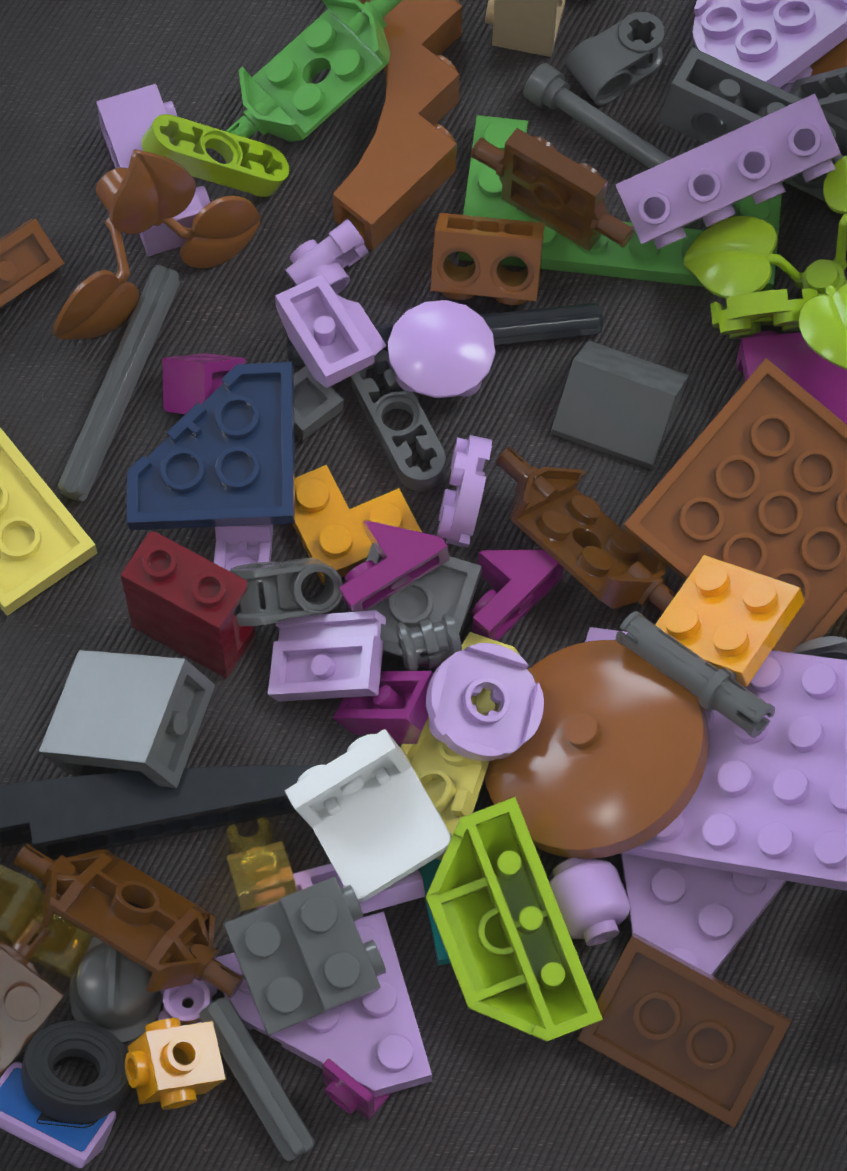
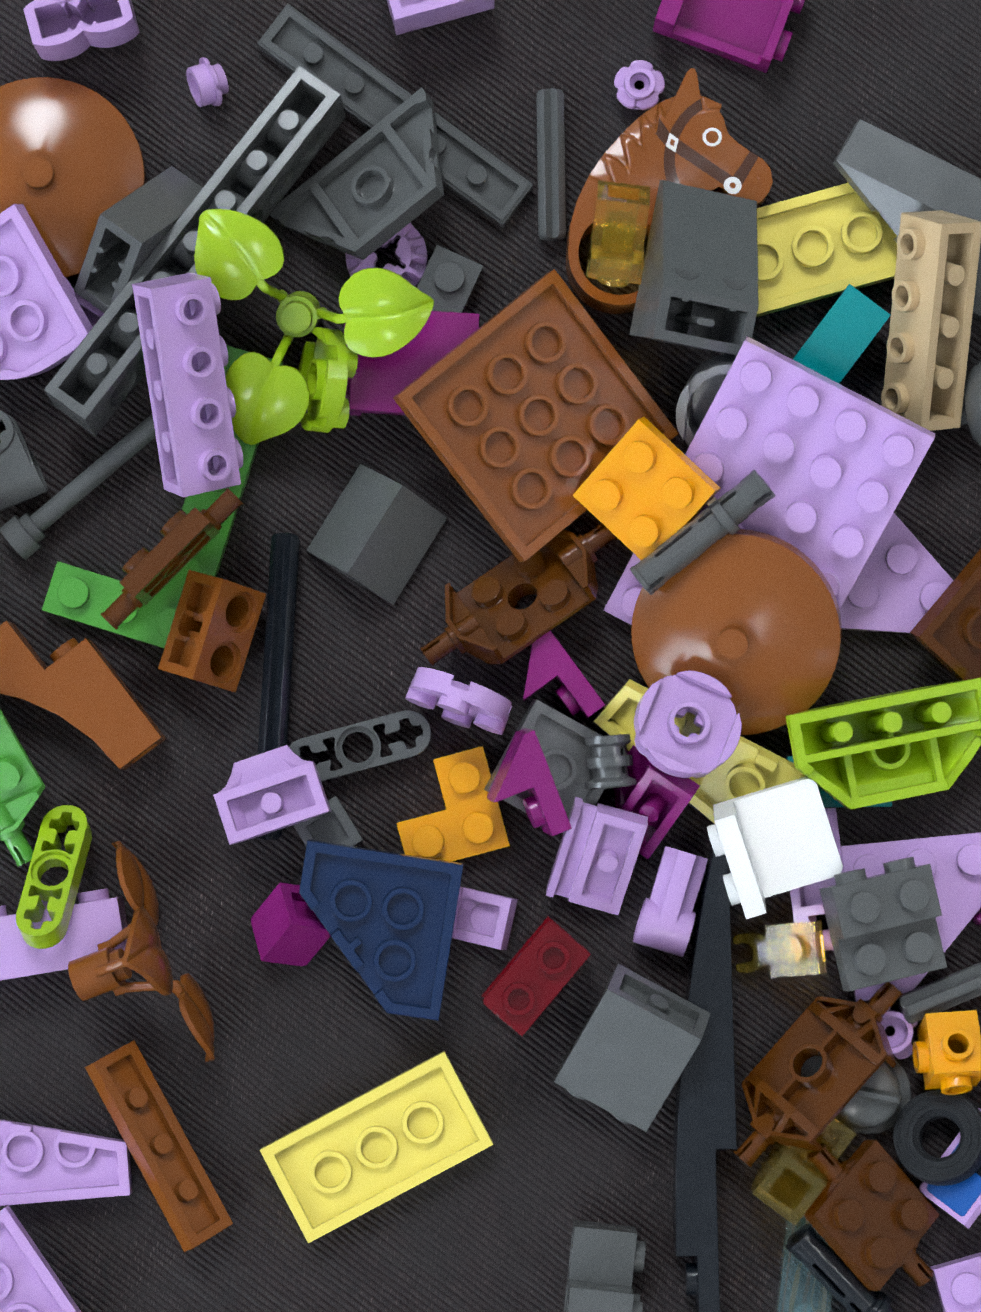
camera: 80 degrees left, 20 degrees up
(119, 384) = (273, 1005): dark grey axle -> none
(274, 738) = (668, 913): none -> lavender piece
(276, 591) = (528, 885): dark grey piece -> none
(329, 257) = (186, 793): lavender plate -> none
(441, 350) = (303, 694): lavender dish -> none
(590, 899) = (867, 666): lavender head -> none

